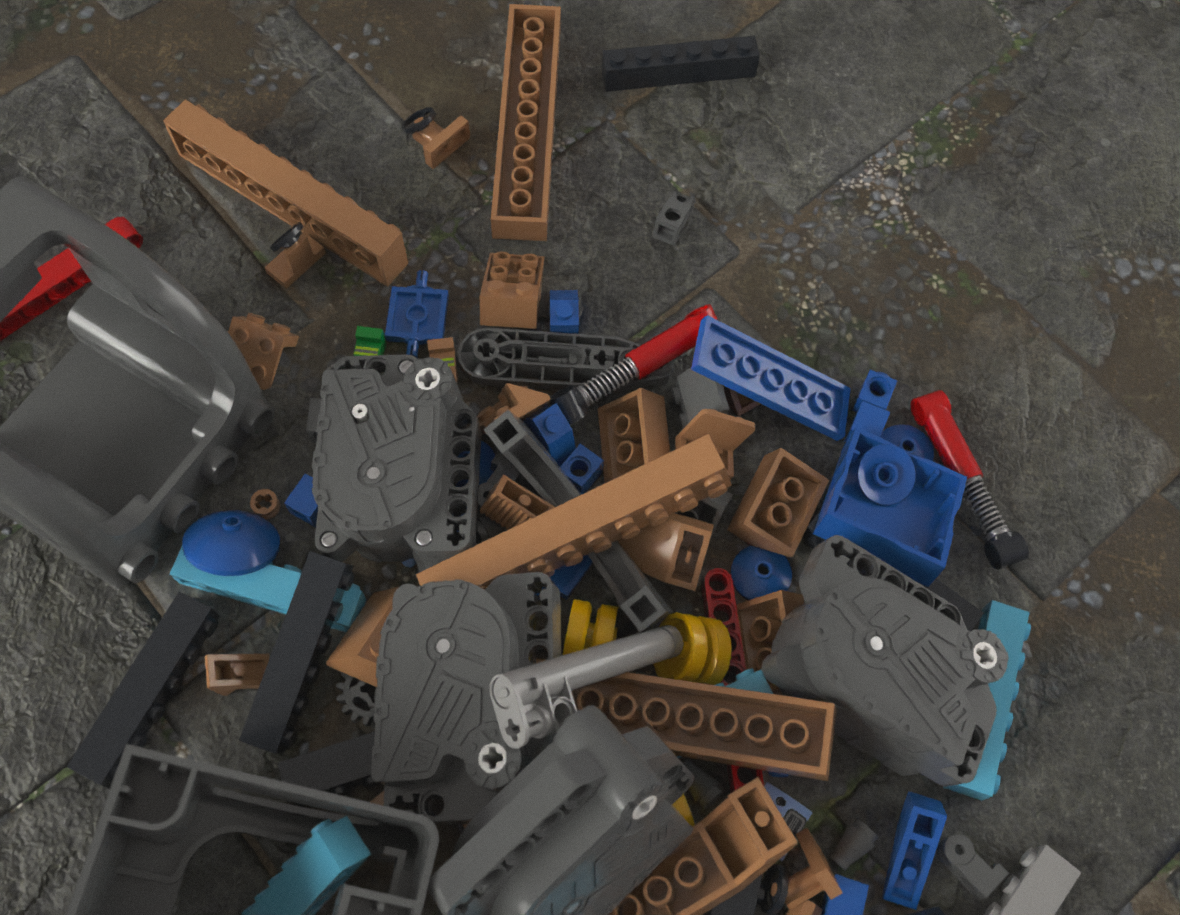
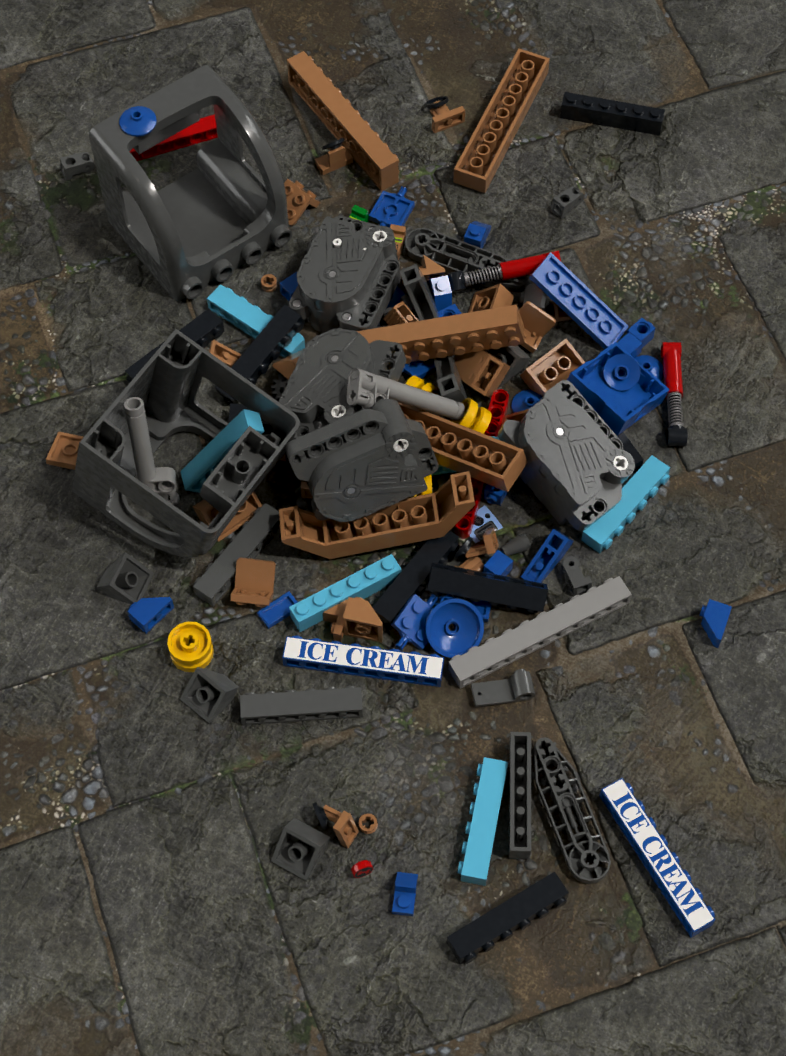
camera: 25 degrees right, 5 degrees down
(231, 543) = (244, 293): blue dish -> none
(511, 290) = (451, 213): medium nougat slope -> none

